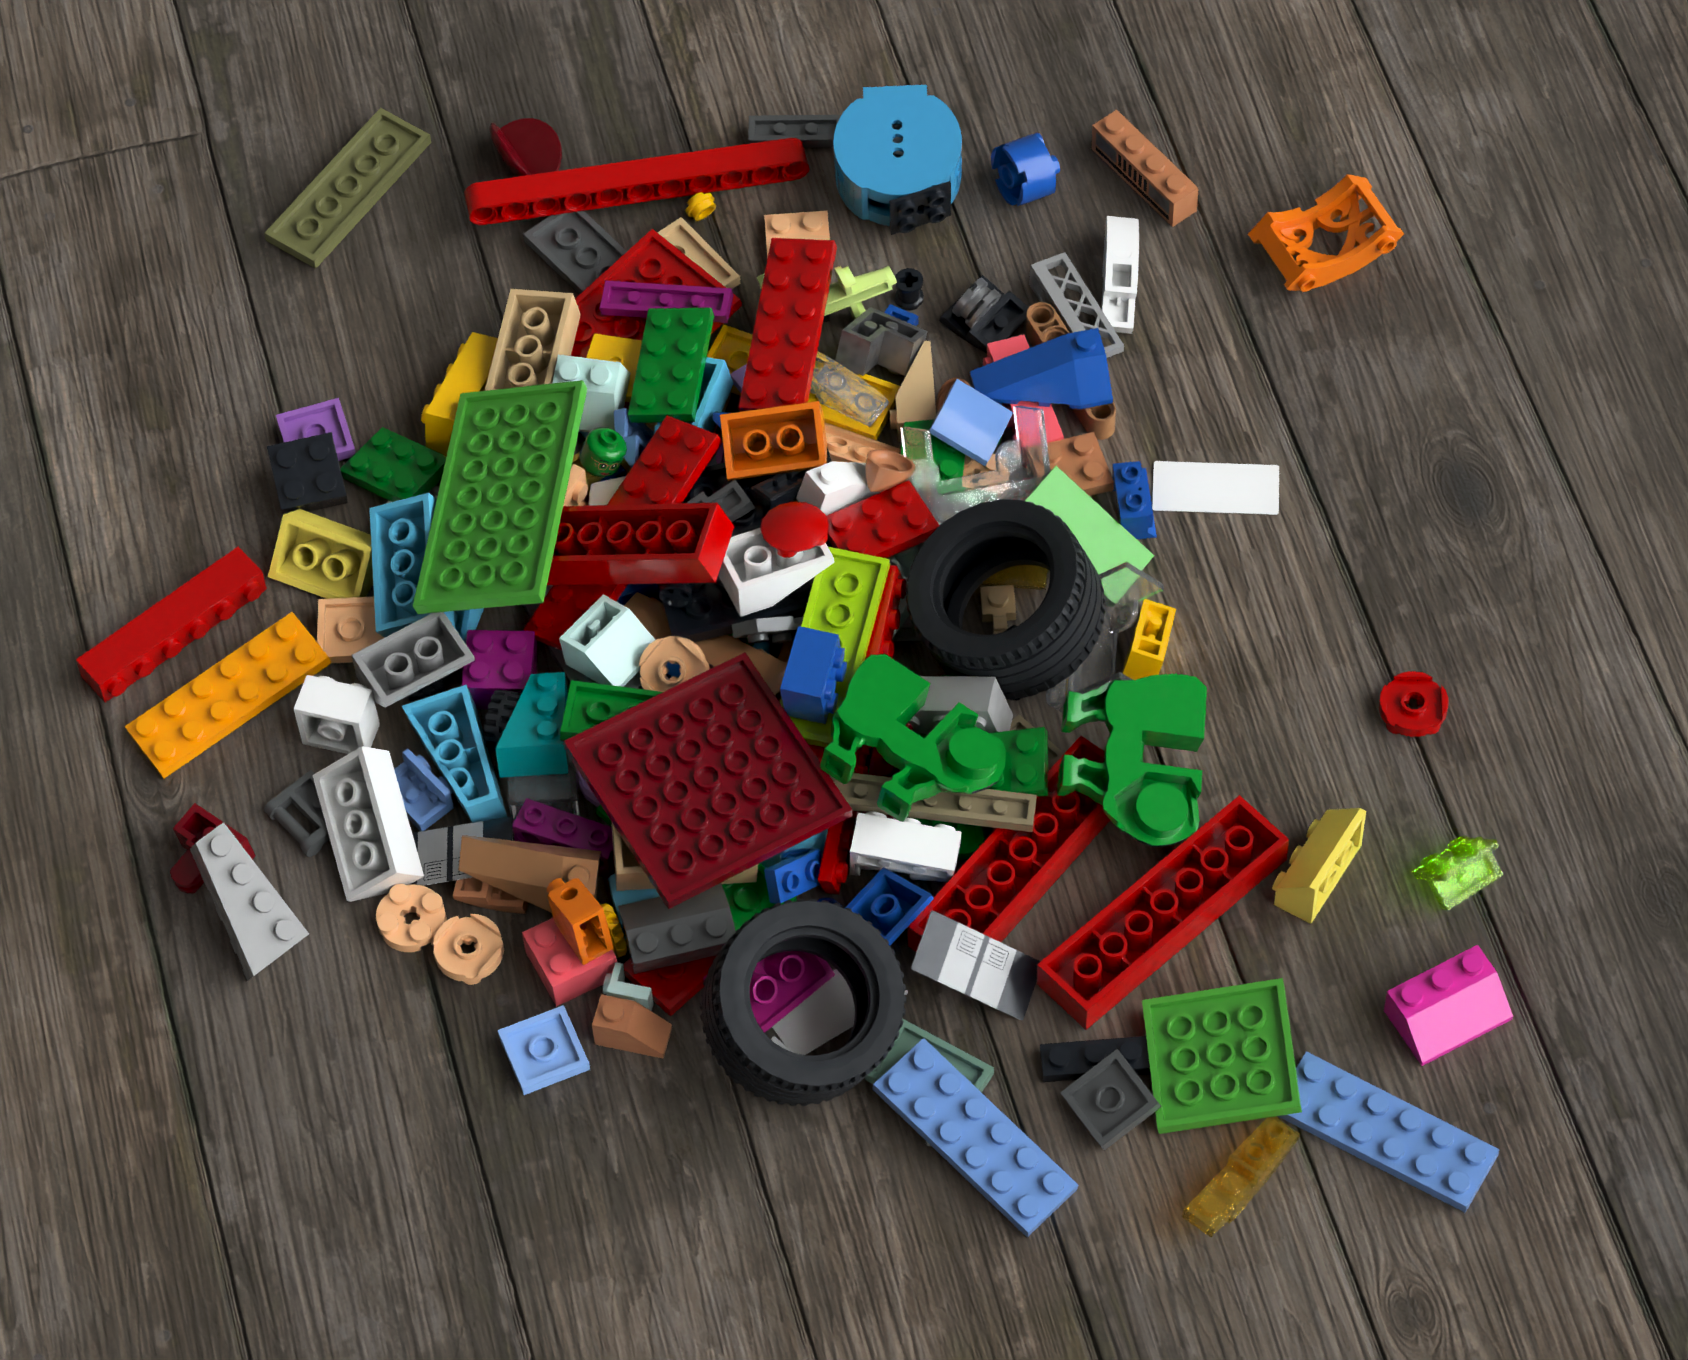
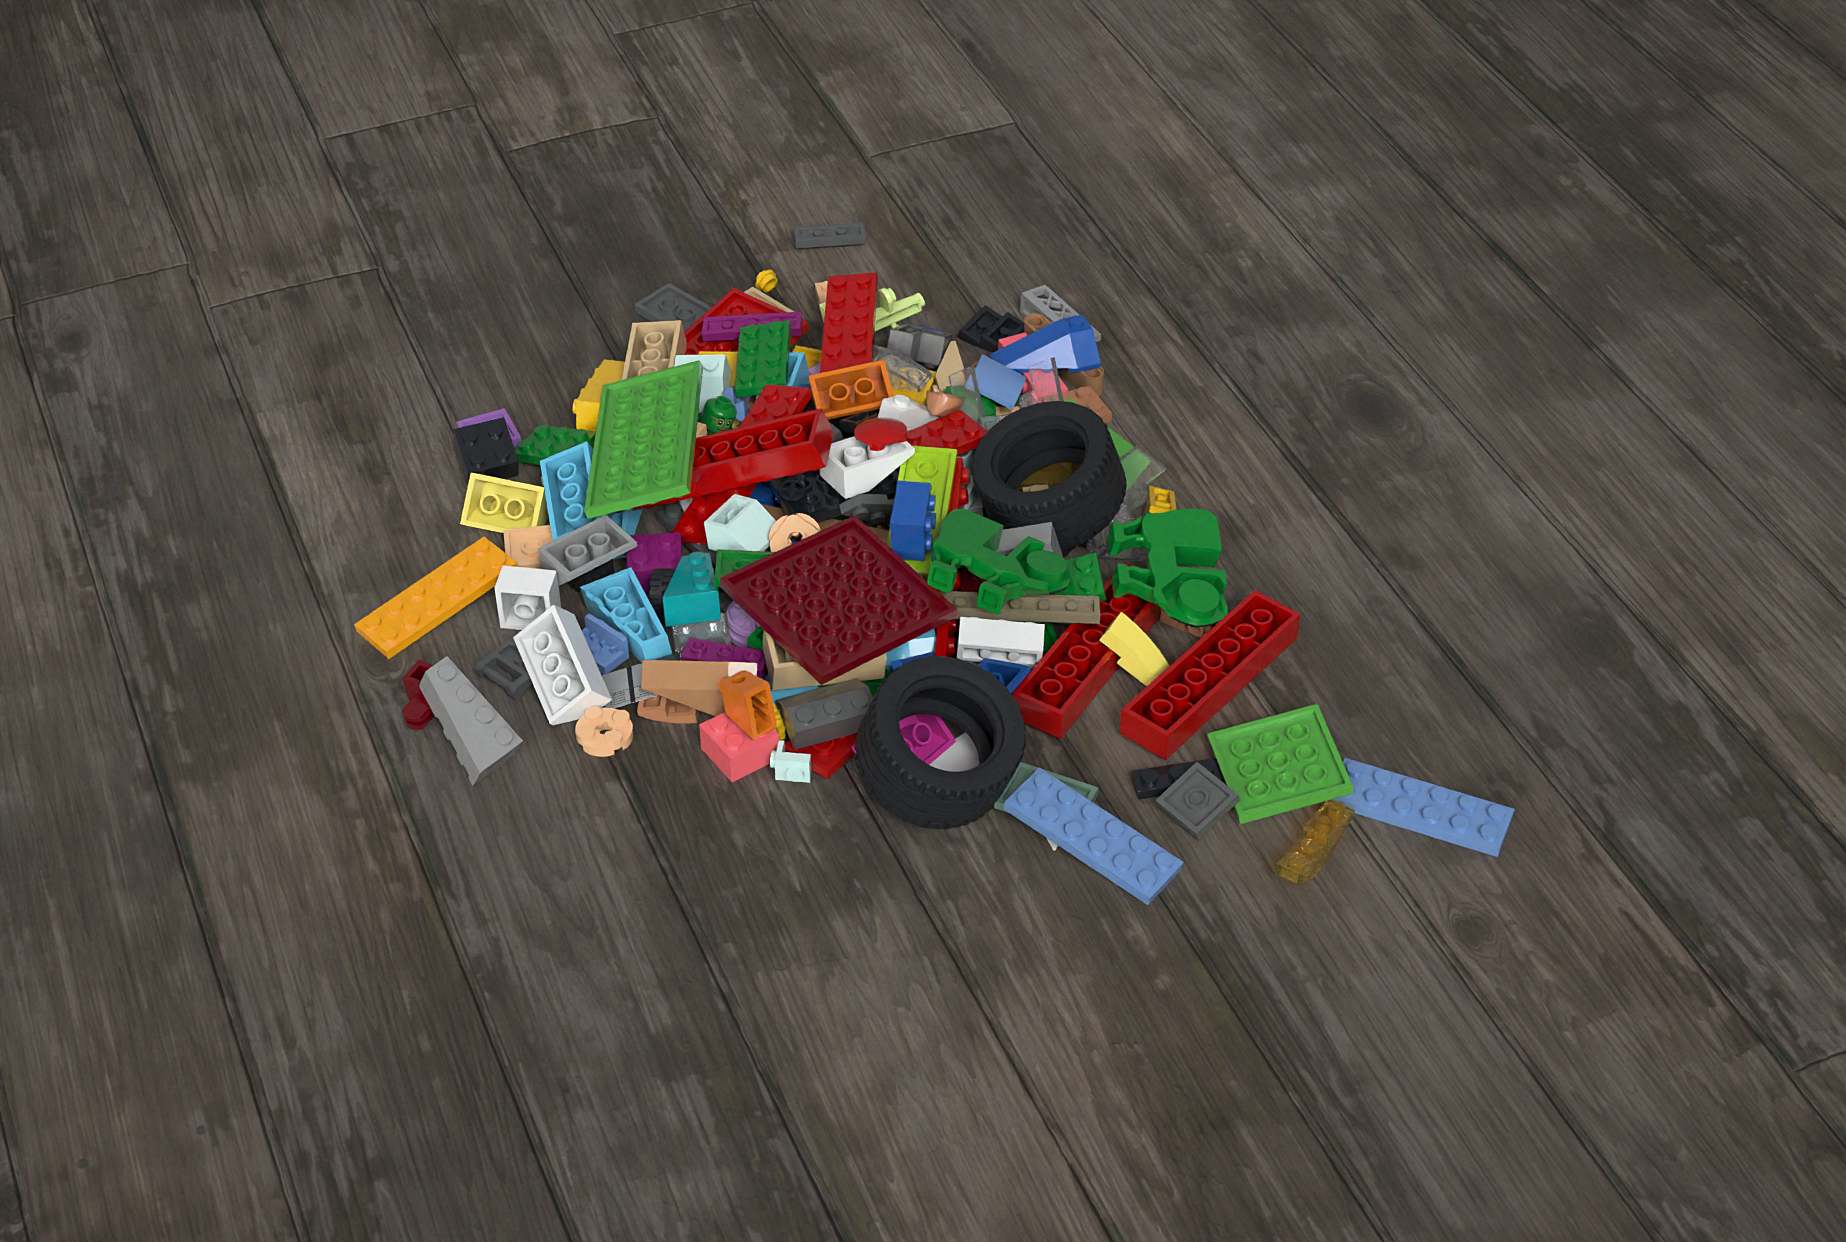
camera: 10 degrees left, 15 degrees down
(171, 624) = (385, 556): red brick -> none
(347, 188) = (495, 288): olive plate -> none
(471, 966) = (657, 758): light nougat plate -> none
(527, 146) = (631, 257): dark red piece -> none
(543, 1050) = (727, 808): light blue plate -> none
(630, 1027) = (795, 786): nougat slope -> none
(636, 181) = (714, 266): red beam -> none
(898, 157) = (912, 234): dark azure piece -> none
(908, 286) = (932, 315): black bush -> none
(976, 302) = (985, 316): flat silver wheel -> none
(976, 965) = (1072, 715): sticker -> none
(1025, 170) = (1005, 241): blue brick -> none
(1072, 875) = (1135, 649): none -> light yellow slope
(1120, 272) = (1088, 294): white slope -> none
(1134, 499) = (1129, 421): blue window -> none
(1144, 168) = (1092, 237): nougat brick -> none
(1215, 487) = (1186, 419): white sticker -> none
(1282, 231) = (1210, 264): orange fence -> none
(1319, 862) = (1326, 633): light yellow slope -> none
(1409, 721) = (1382, 535): red plate -> none
(1448, 1005) = (1448, 717): slope -> none
(1460, 870) = (1435, 630): clear neon green bracket -> none

